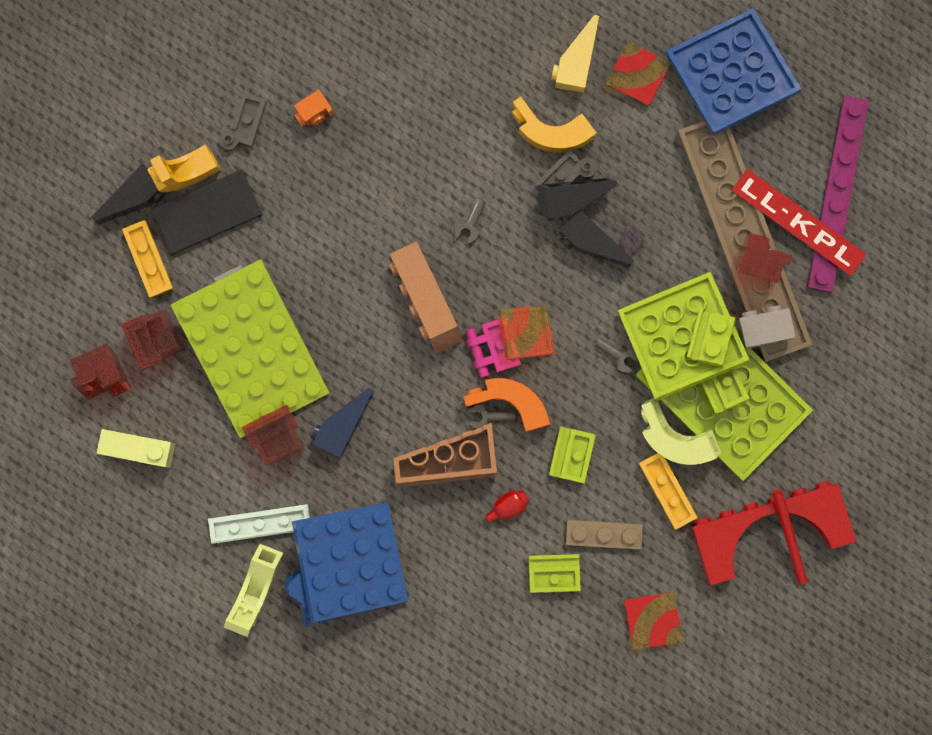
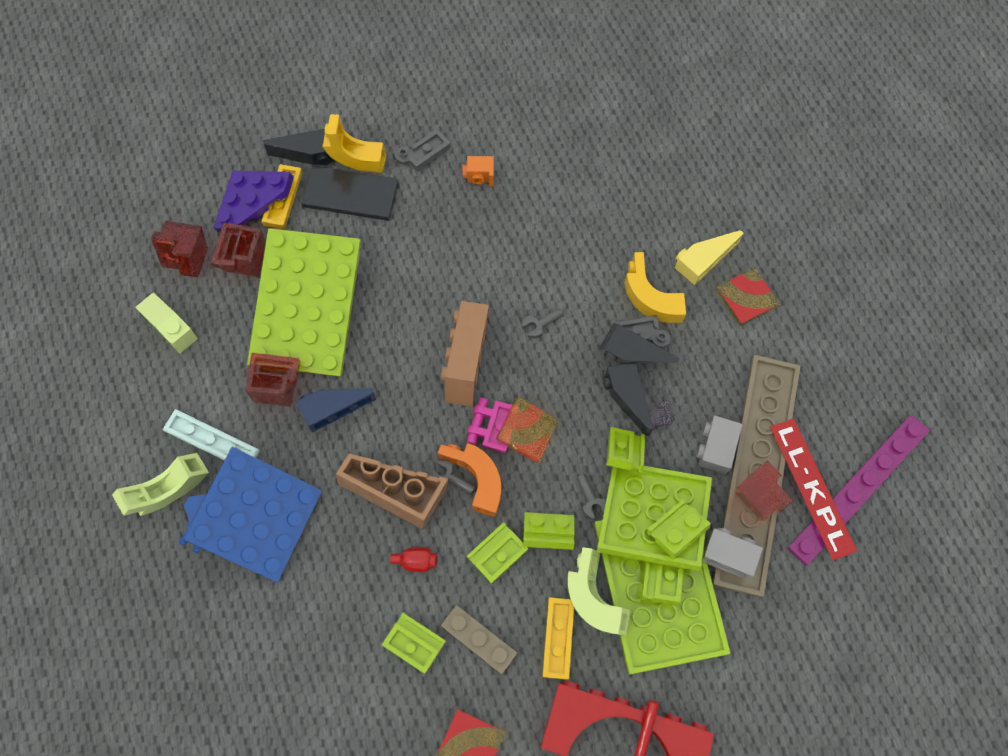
camera: 30 degrees right, 15 degrees down
(120, 280) = (251, 194): none -> dark purple plate
(602, 408) = (548, 531): none -> lime plate
(622, 294) = (625, 449): none -> lime plate
(697, 234) = (719, 444): none -> light grey brick
(733, 71) = (827, 339): blue plate -> none

